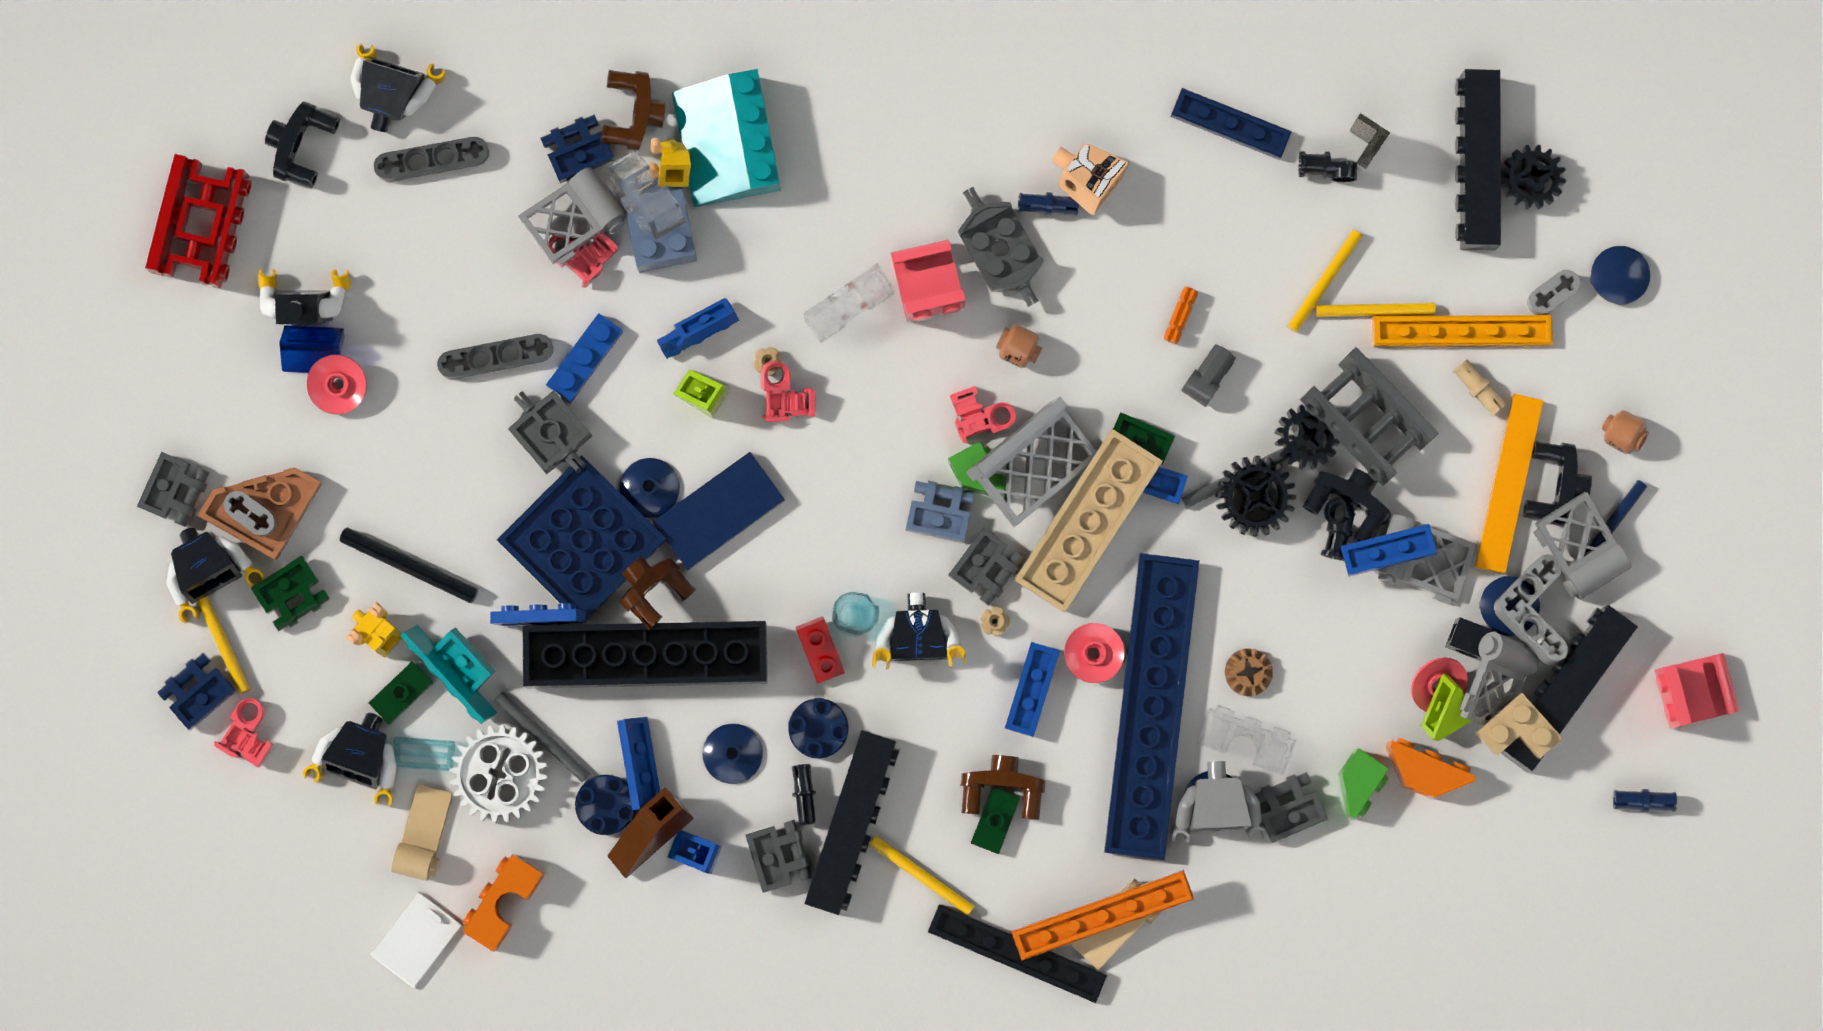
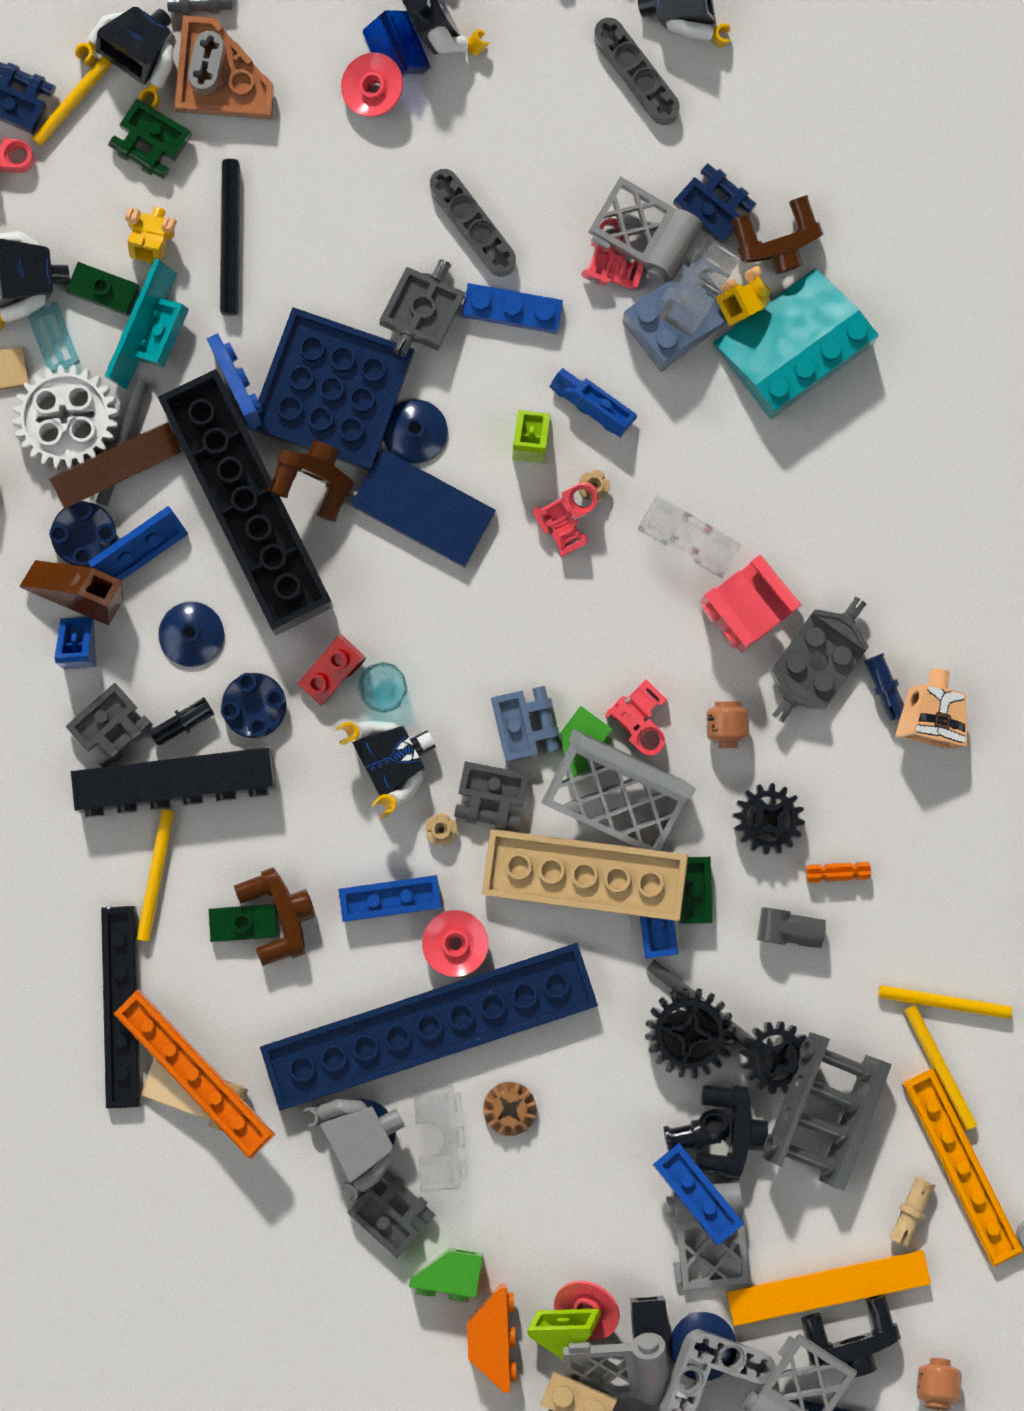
camera: 65 degrees right, 0 degrees up
(560, 750) = (115, 465): none -> reddish brown tile
(1124, 346) = (779, 830): none -> black gear

